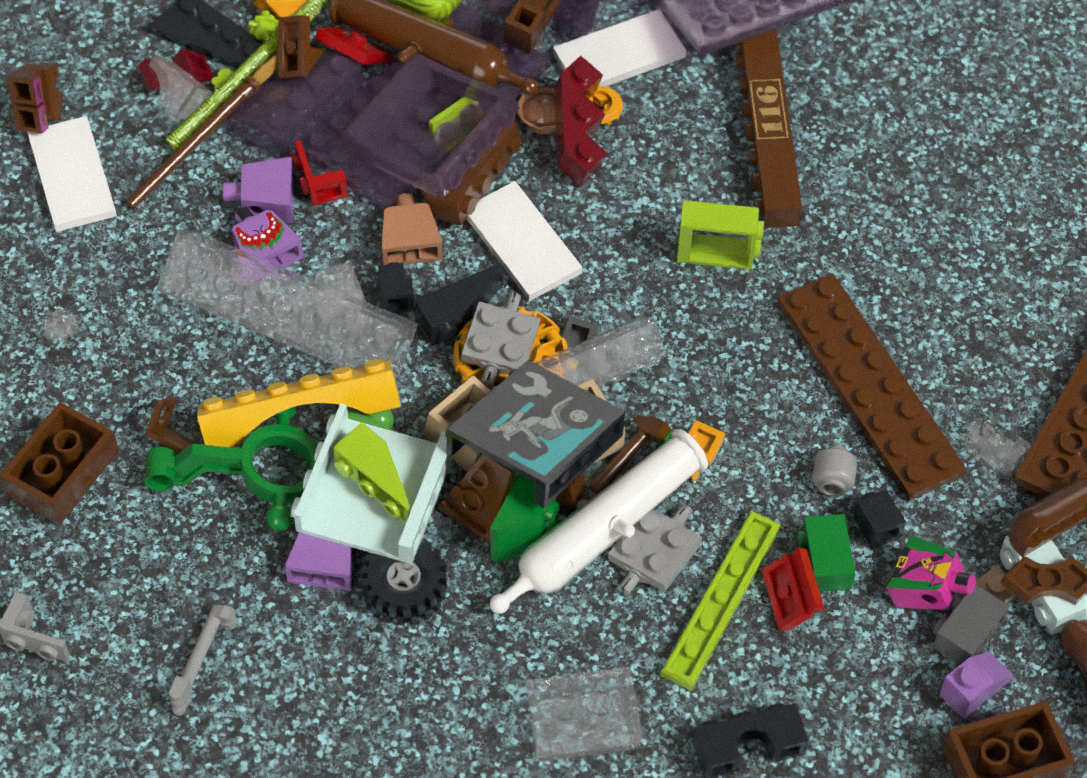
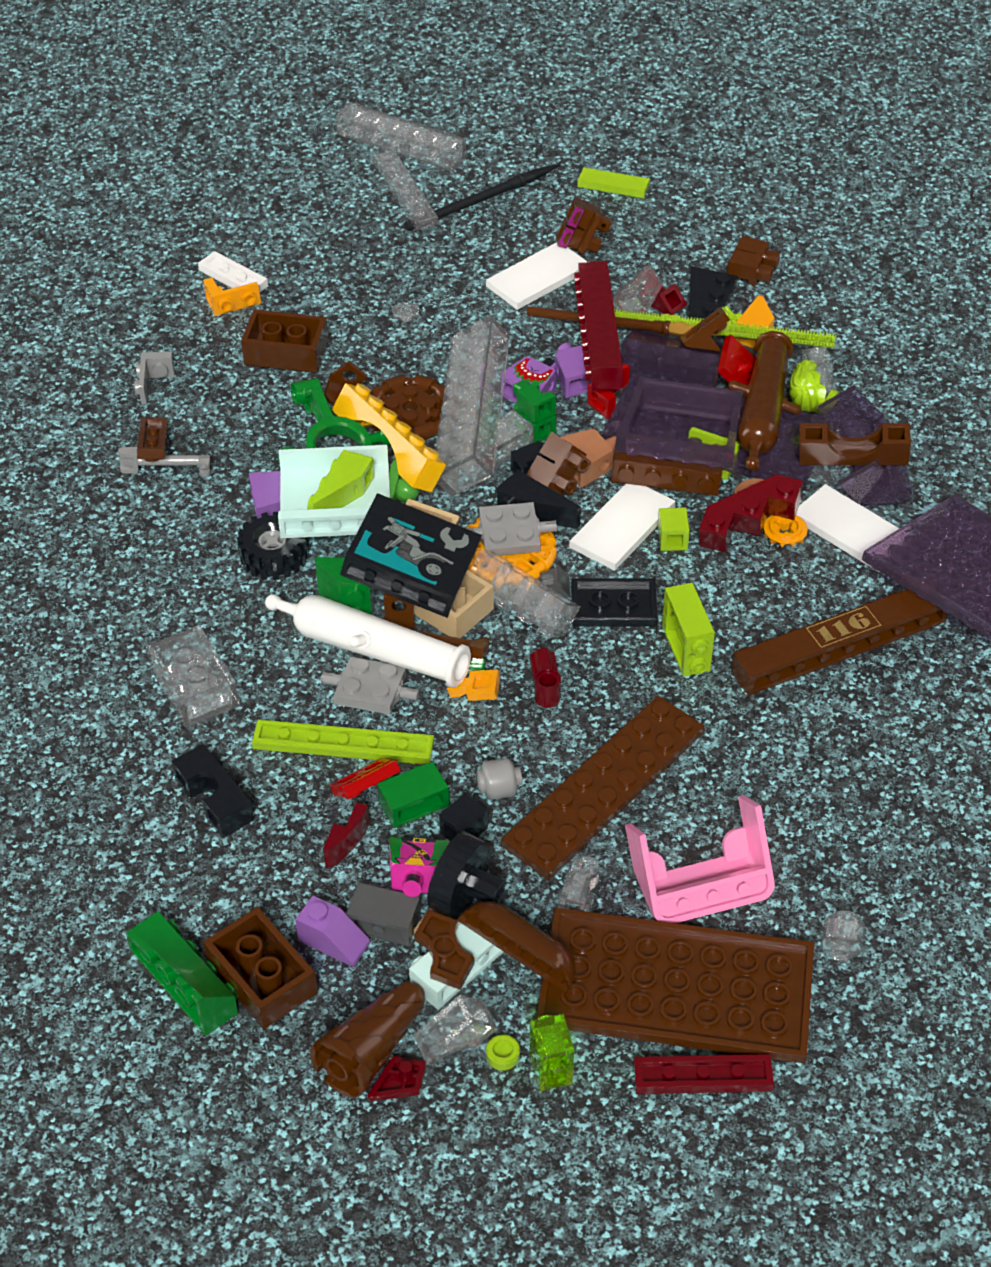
camera: 70 degrees right, 10 degrees down
(161, 656) = (152, 438): none -> reddish brown plate
(228, 138) = (598, 326): none -> dark red brick
(237, 358) = (413, 394): none -> reddish brown plate
(319, 249) = (536, 408): none -> green hips
(426, 246) = (567, 462): none -> reddish brown hips
(557, 197) = (673, 529): none -> lime brick
(629, 286) = (614, 602): none -> black tile
(716, 383) = (545, 678): none -> dark red piece
(865, 637) = (345, 838): none -> dark red slope
(971, 532) = (463, 876): none -> black piece
(1021, 332) = (712, 885): none -> bright pink windscreen

